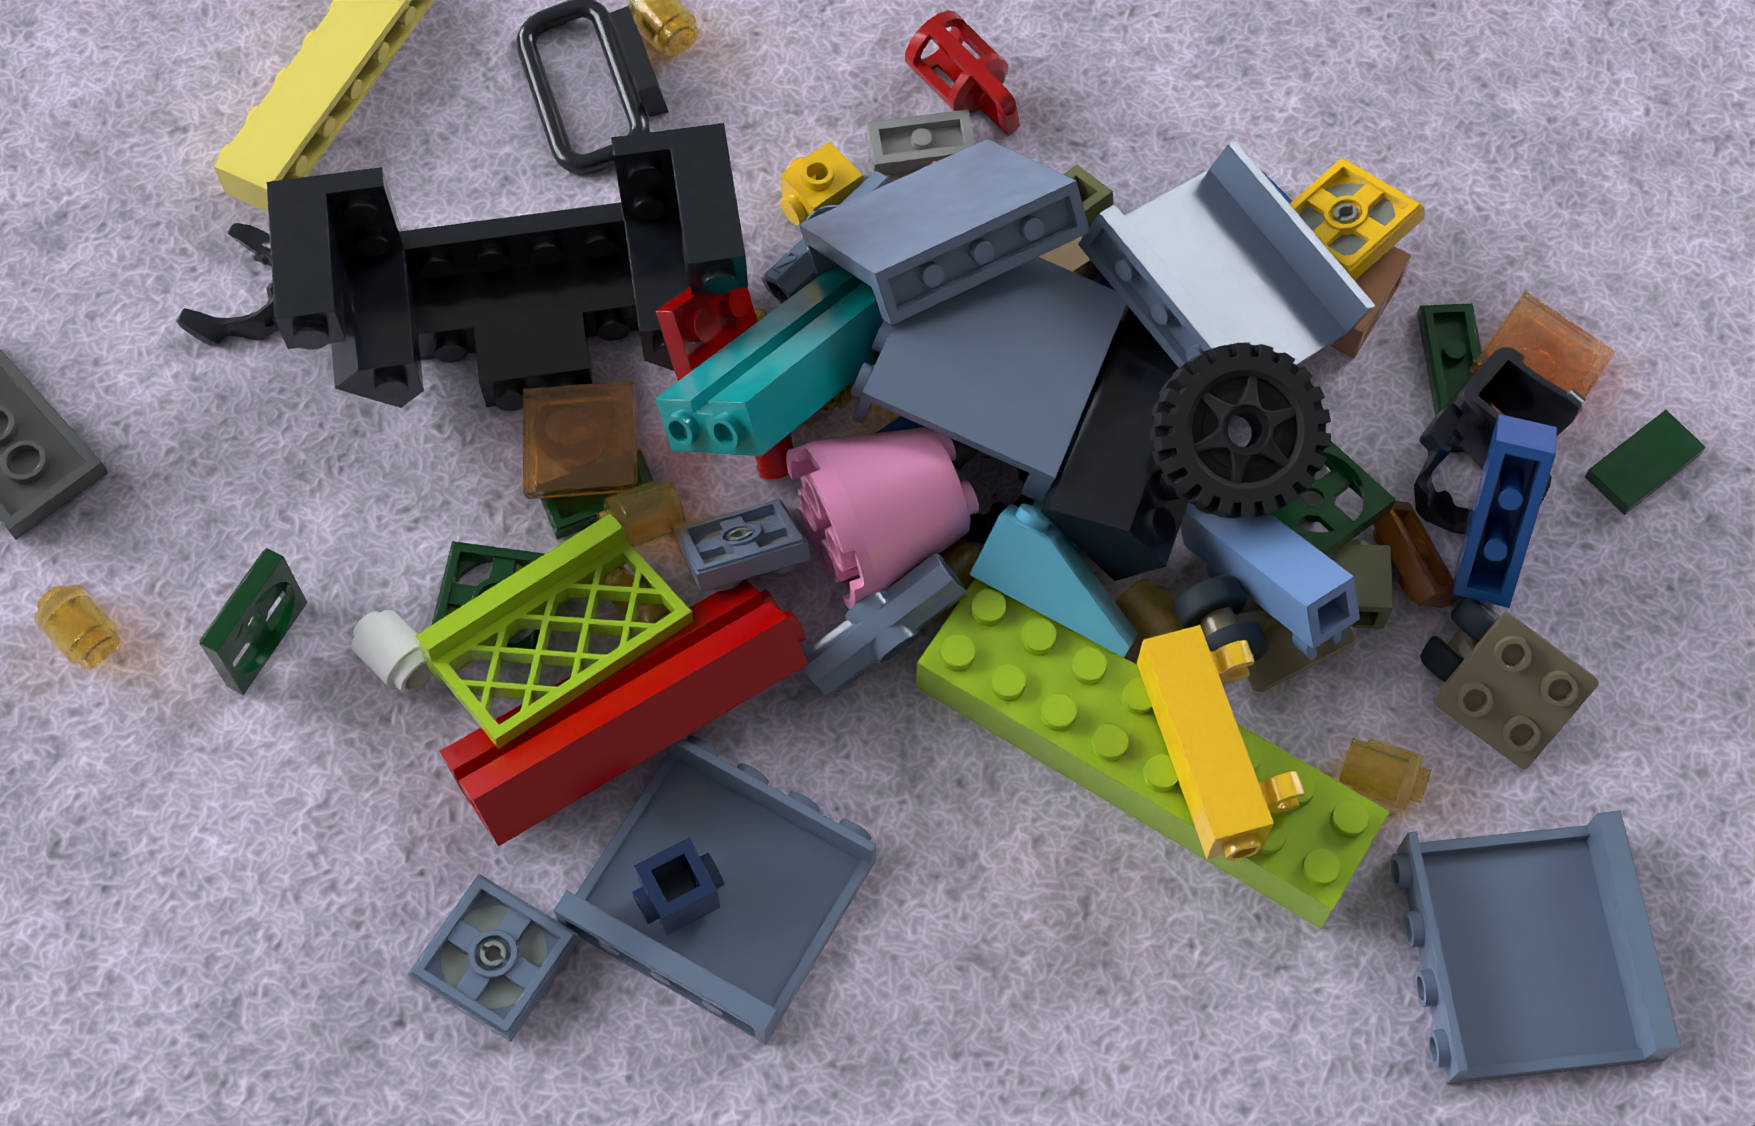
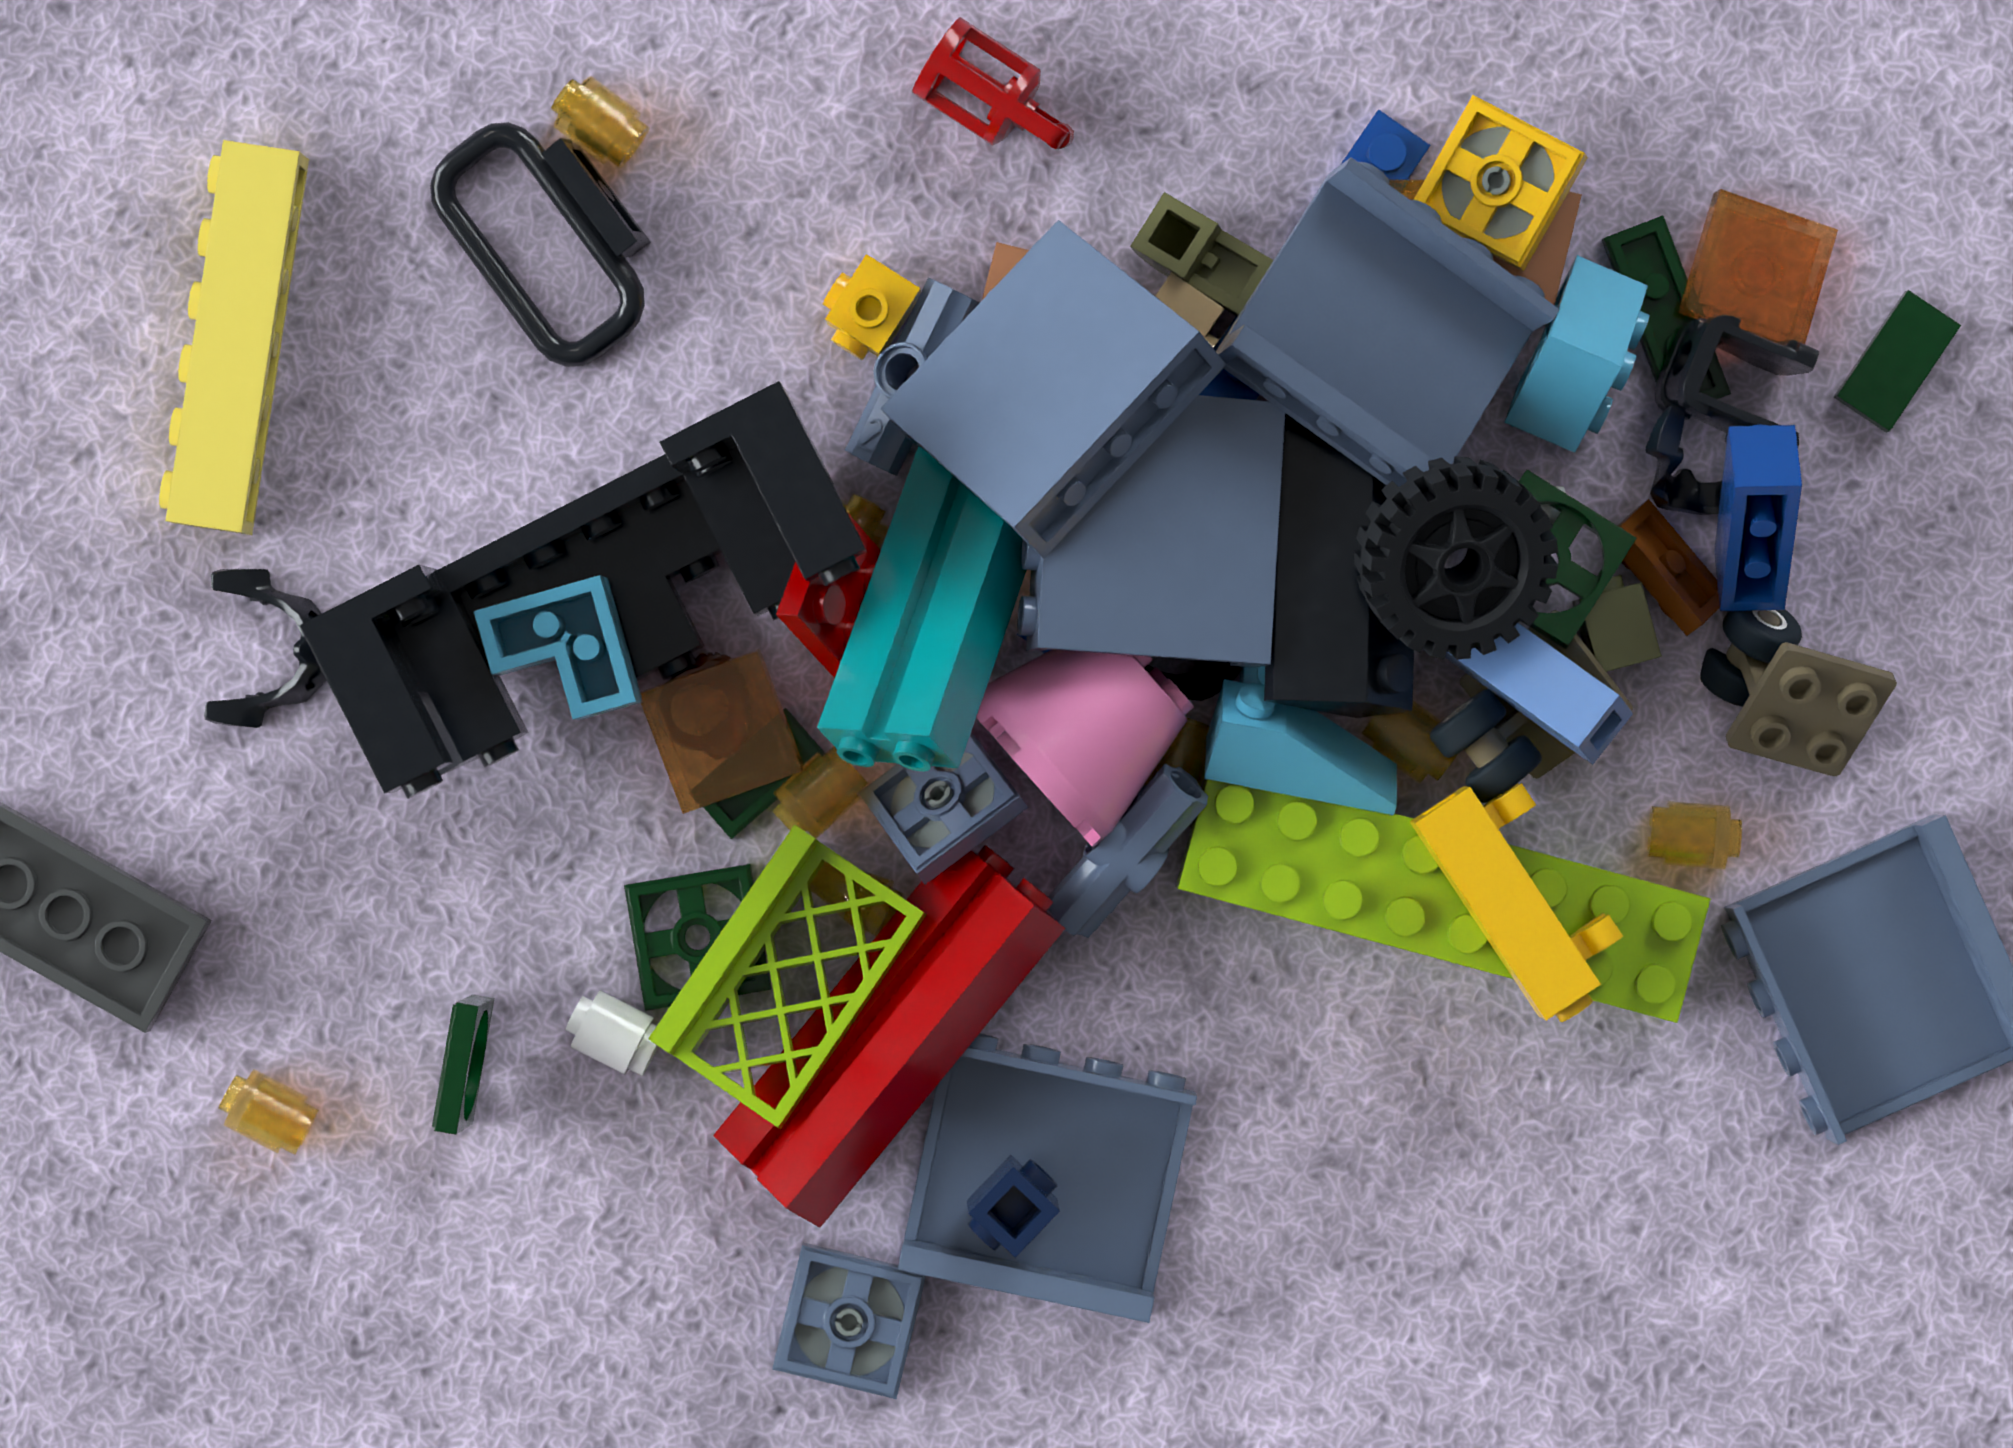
camera: 20 degrees left, 25 degrees up
(482, 305) = (575, 628): none -> medium azure brick
(917, 141) = (967, 199): light grey plate -> none
(1378, 359) = (1580, 356): none -> medium azure brick

